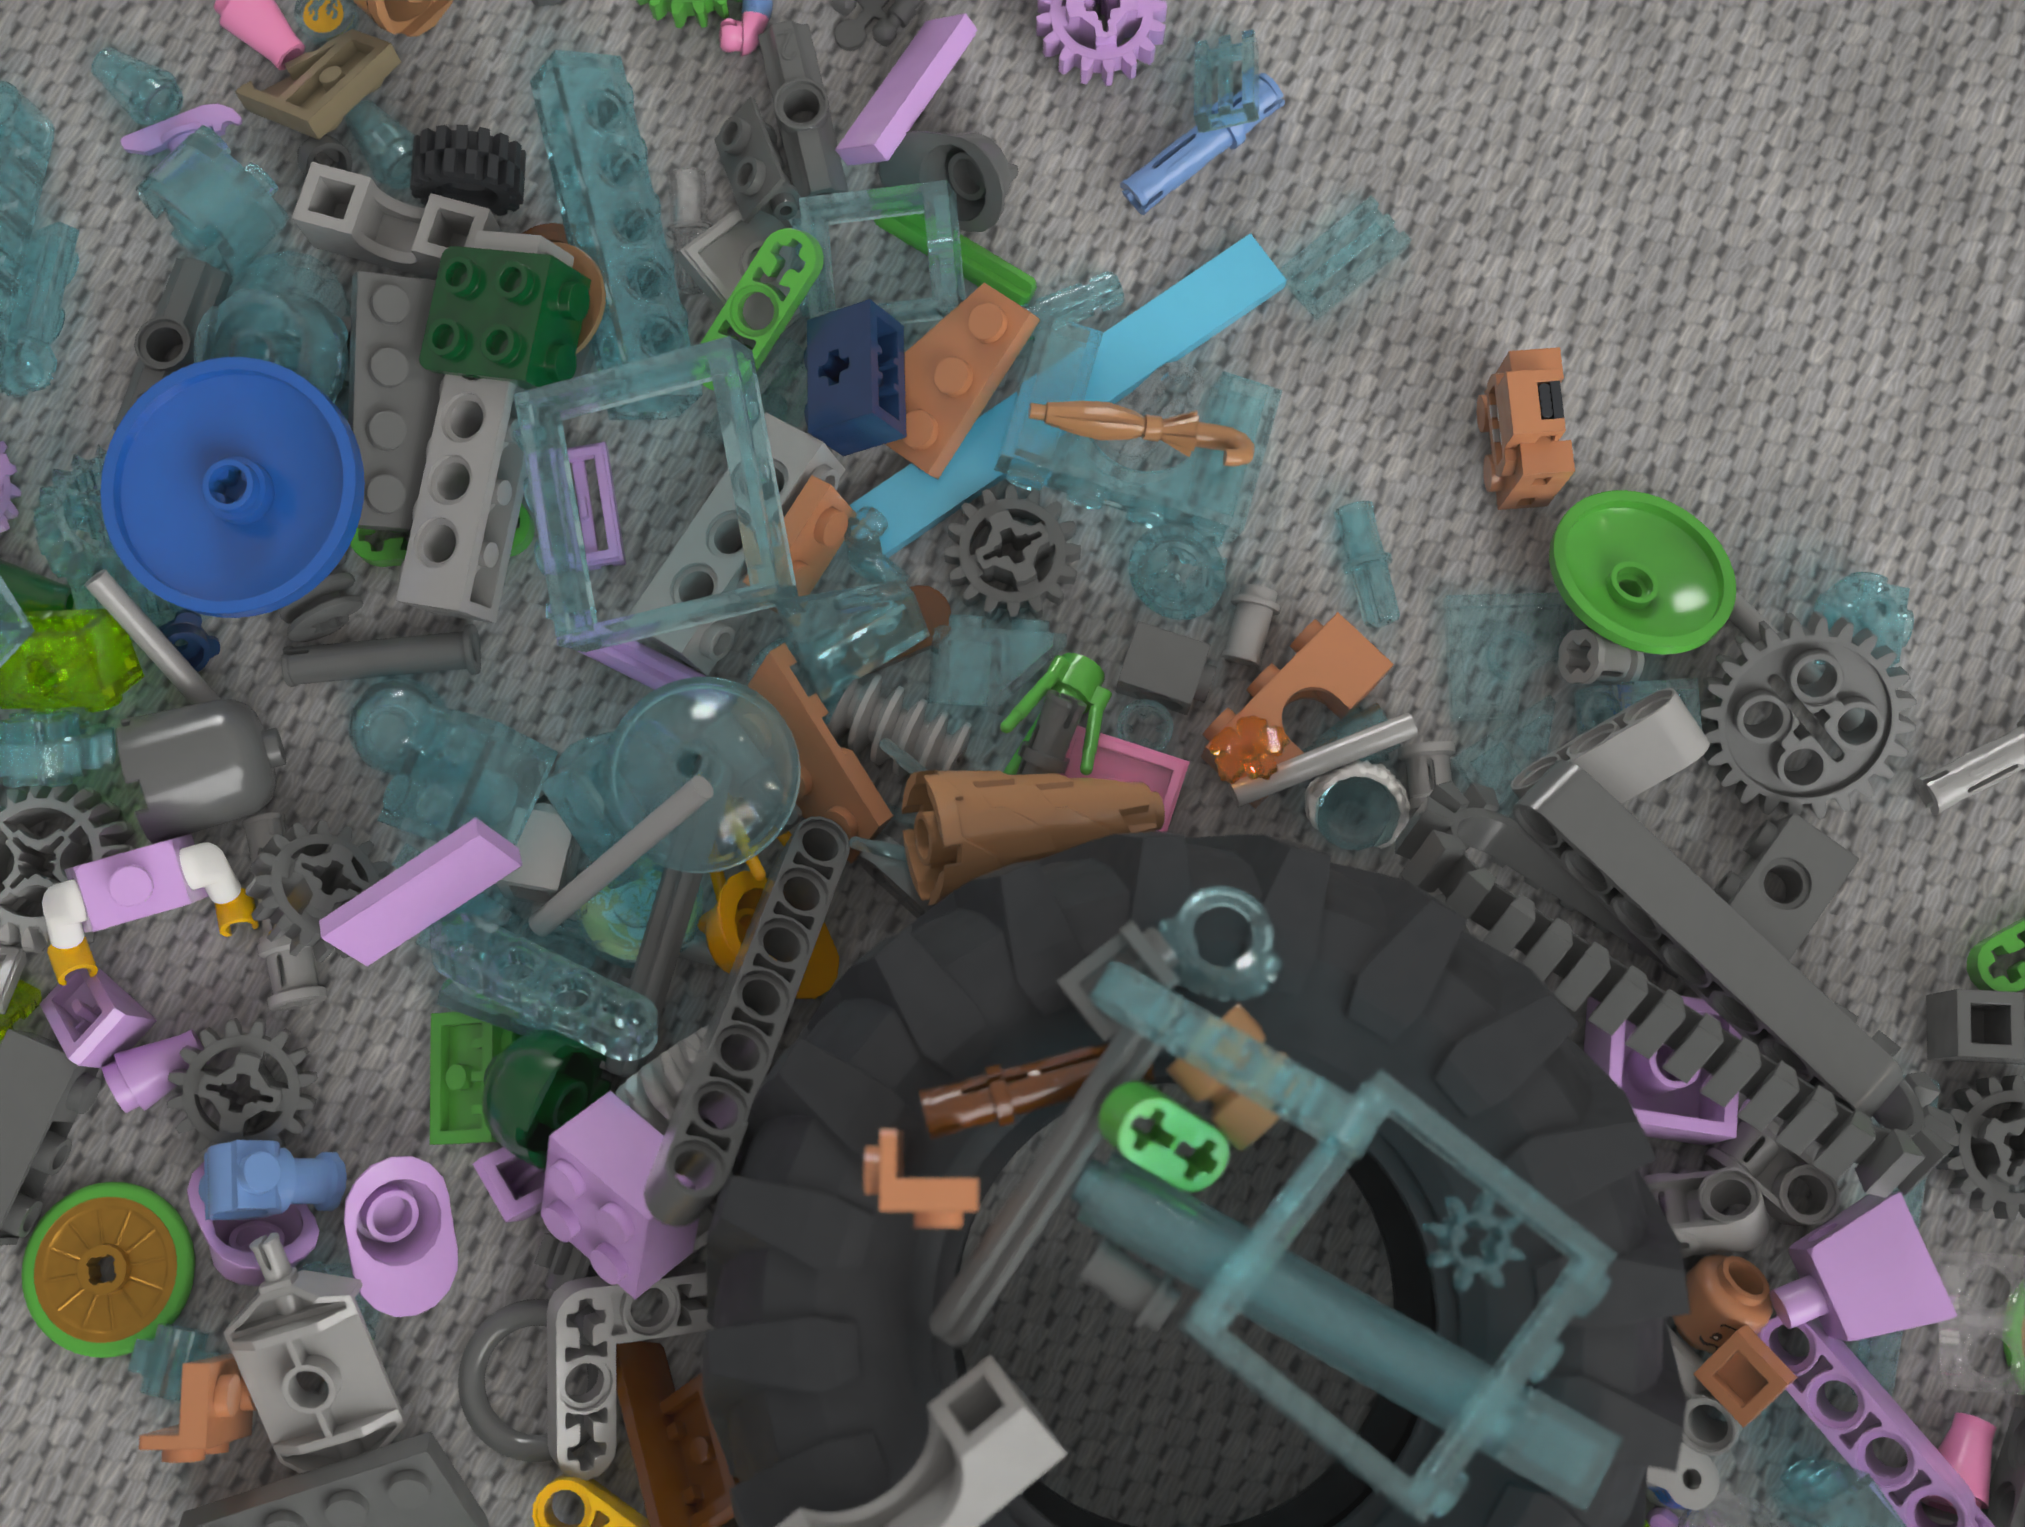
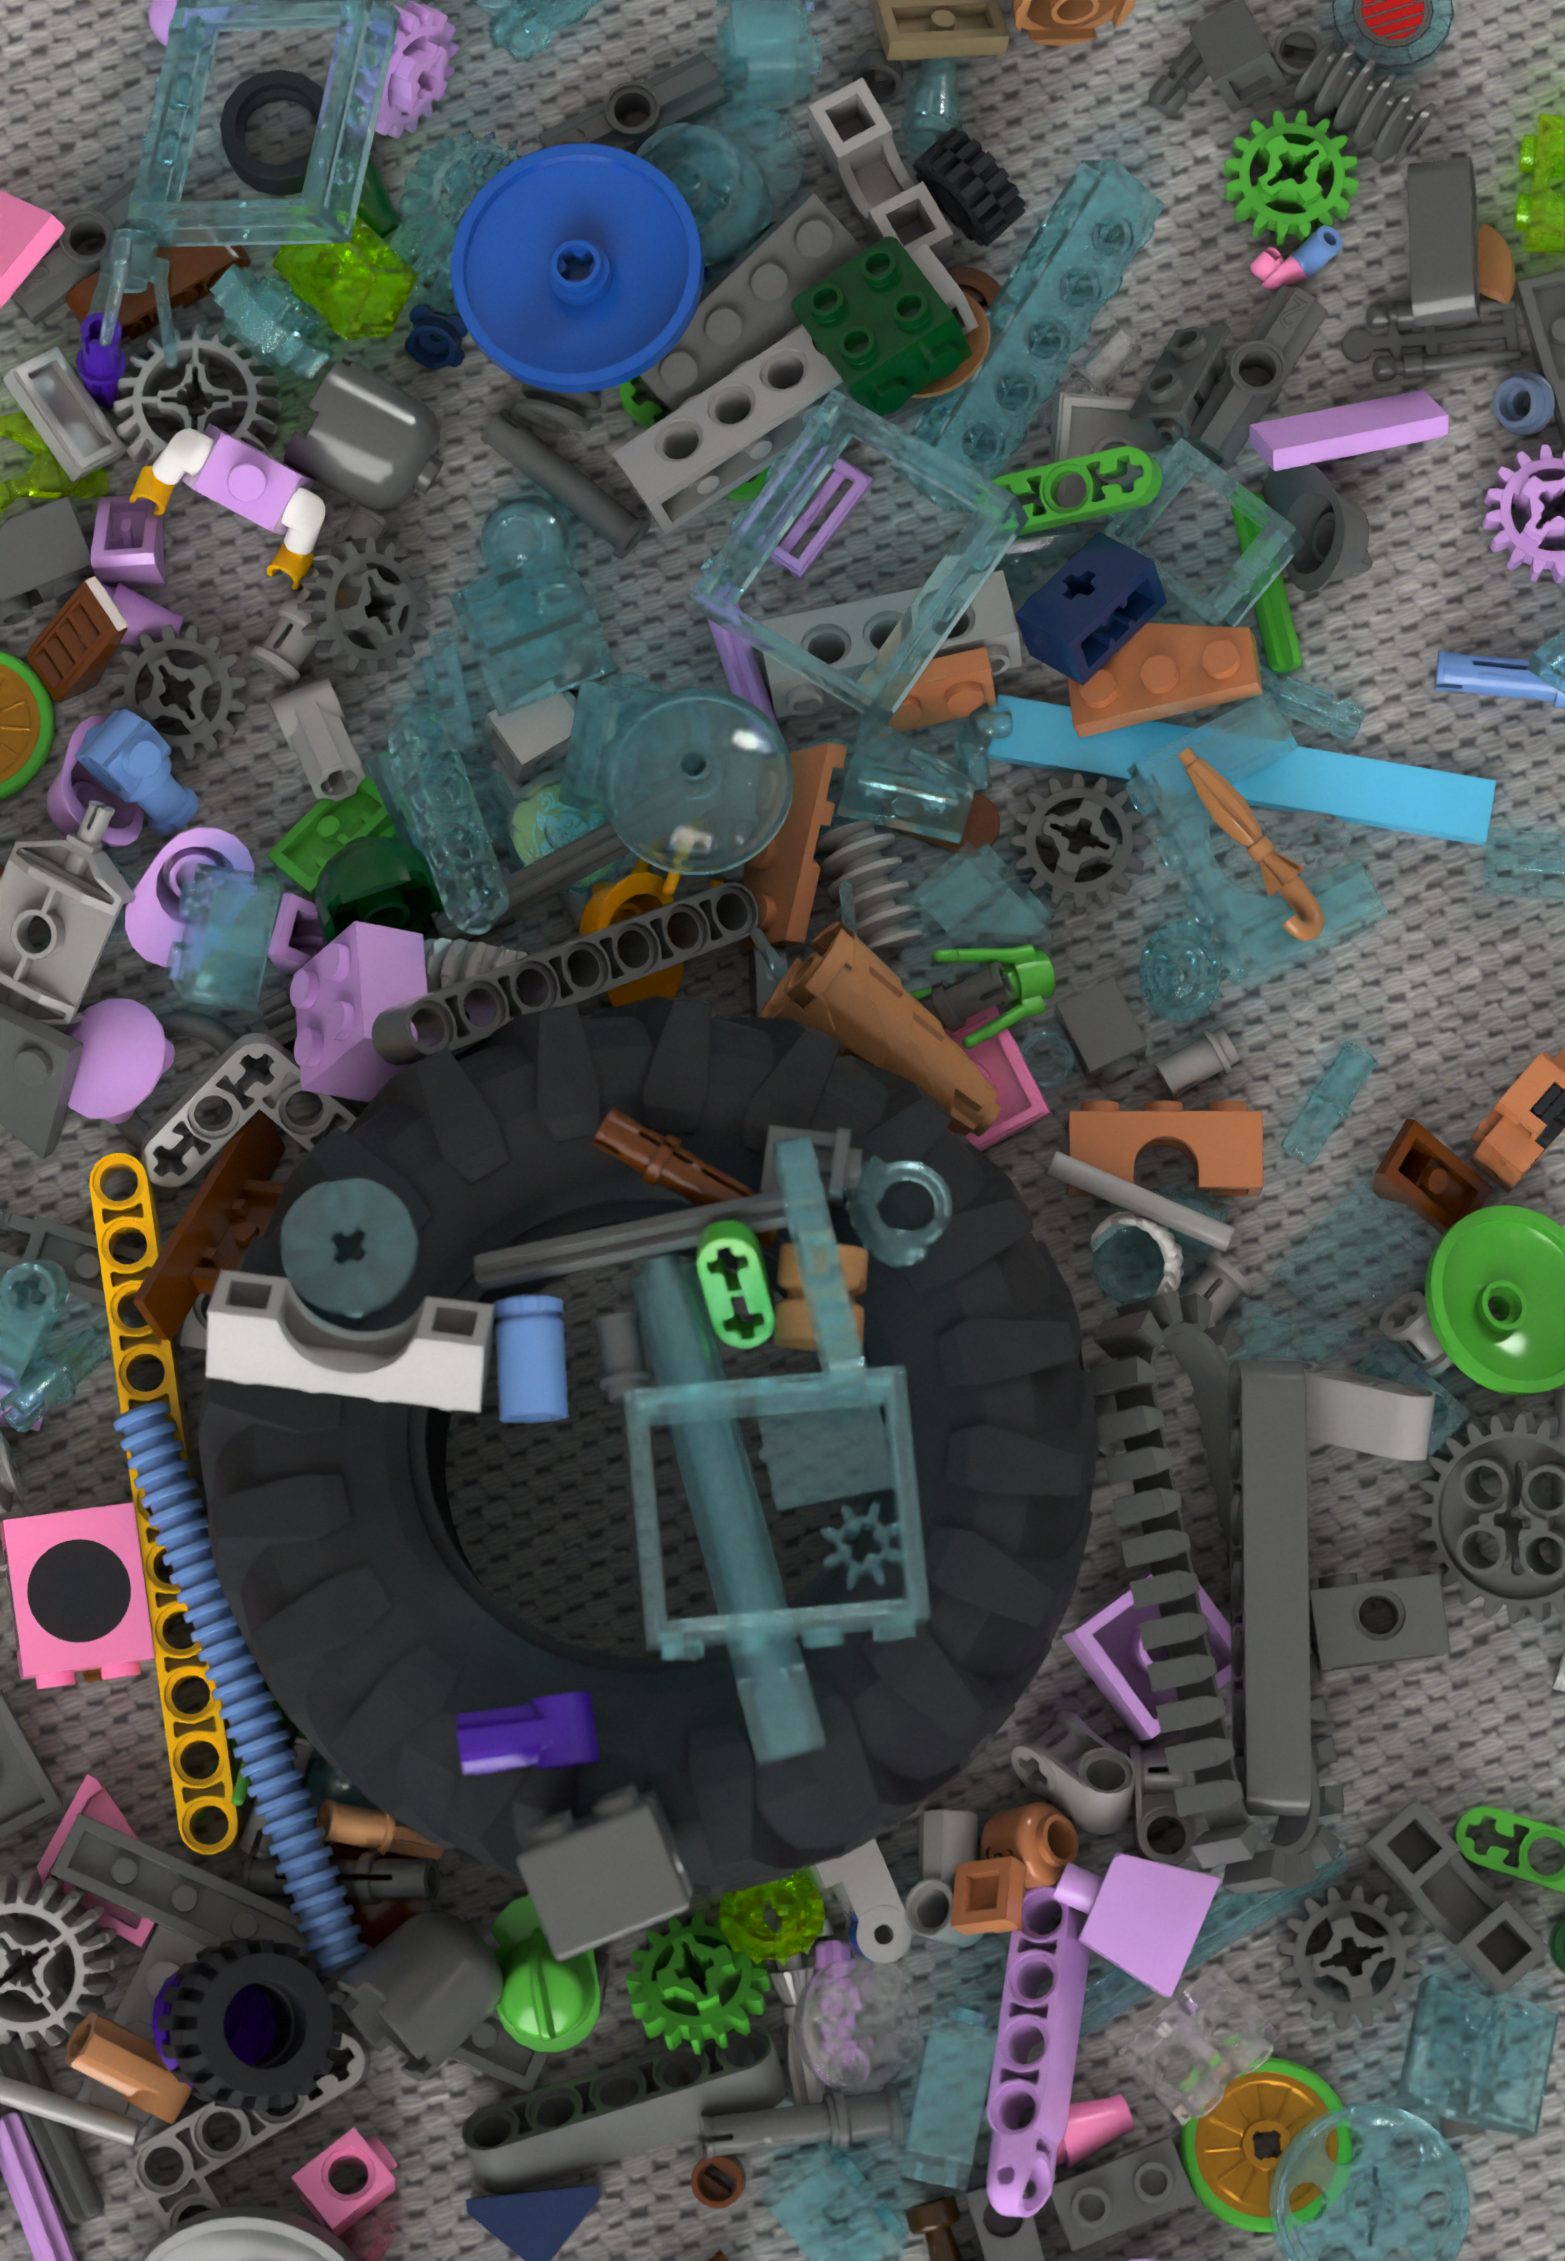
camera: 50 degrees right, 0 degrees up
(125, 1129) = (78, 642): none -> reddish brown slope
(149, 638) = (419, 317): light grey piece -> none
(379, 1017) = (317, 732): none -> light grey piece
(420, 892) = (429, 675): lavender tile -> none
(459, 1239) = (224, 936): none -> clear light blue brick
(470, 1412) = (119, 1059): none -> lavender dish
(621, 855) = (585, 783): light grey bar -> none
(791, 1460) = (344, 1208): none -> clear light blue plate
(933, 1200) = (551, 1172): nougat bracket -> none
(1061, 1365) = (531, 1359): none -> medium blue piece
(1248, 749) = (1093, 1140): clear orange plant -> none
(1369, 1201) = (825, 1455): none -> clear light blue piece
(1494, 547) = (1429, 1178): none -> reddish brown slope

